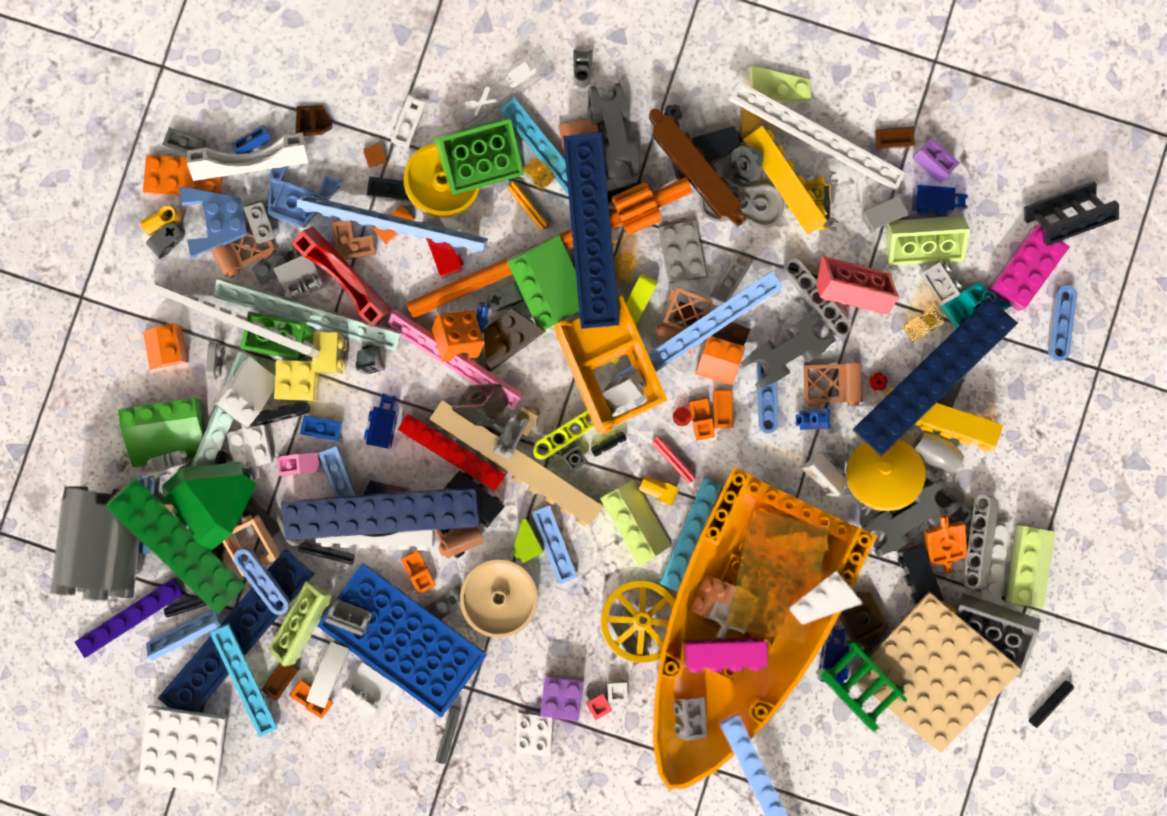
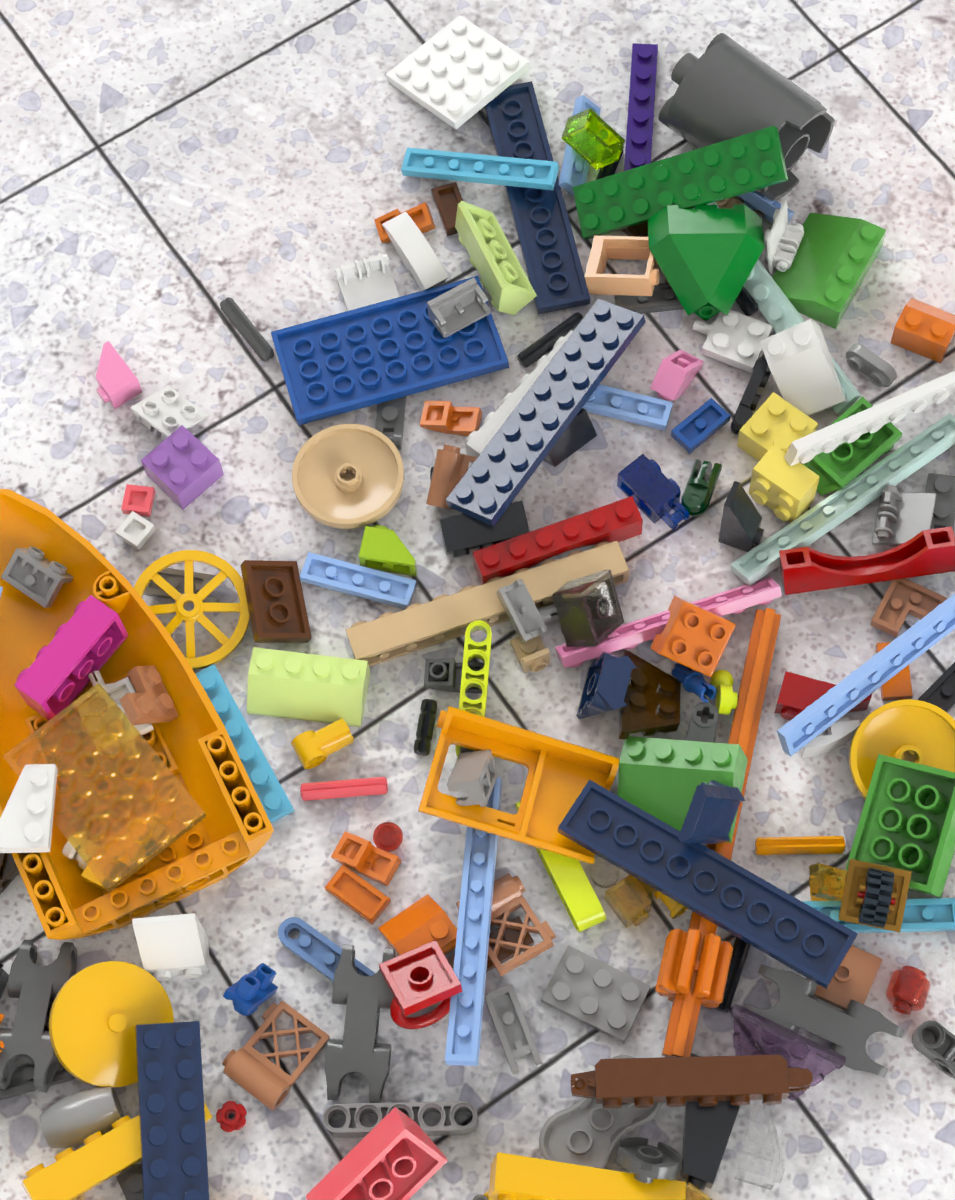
camera: 130 degrees right, 20 degrees down
(176, 624) = (593, 139): none -> clear neon green brick
(261, 580) = (572, 247): medium blue plate -> none
(365, 398) = (700, 487): none -> dark green arm
(477, 295) = (725, 697): none -> neon yellow plate
(519, 362) = (605, 685): none -> dark blue slope
(533, 145) = (874, 895): none -> plate
(536, 784) = (115, 378): none -> bright pink slope
(556, 248) = (711, 813): none -> dark blue slope
(565, 102) = (908, 989): none -> clear red head
(601, 578) = (275, 601): none -> reddish brown plate
(647, 150) = (762, 1036): none -> clear purple wing
(673, 108) = (786, 1128): dark grey plate -> none
(751, 332) = (417, 982): none -> tile

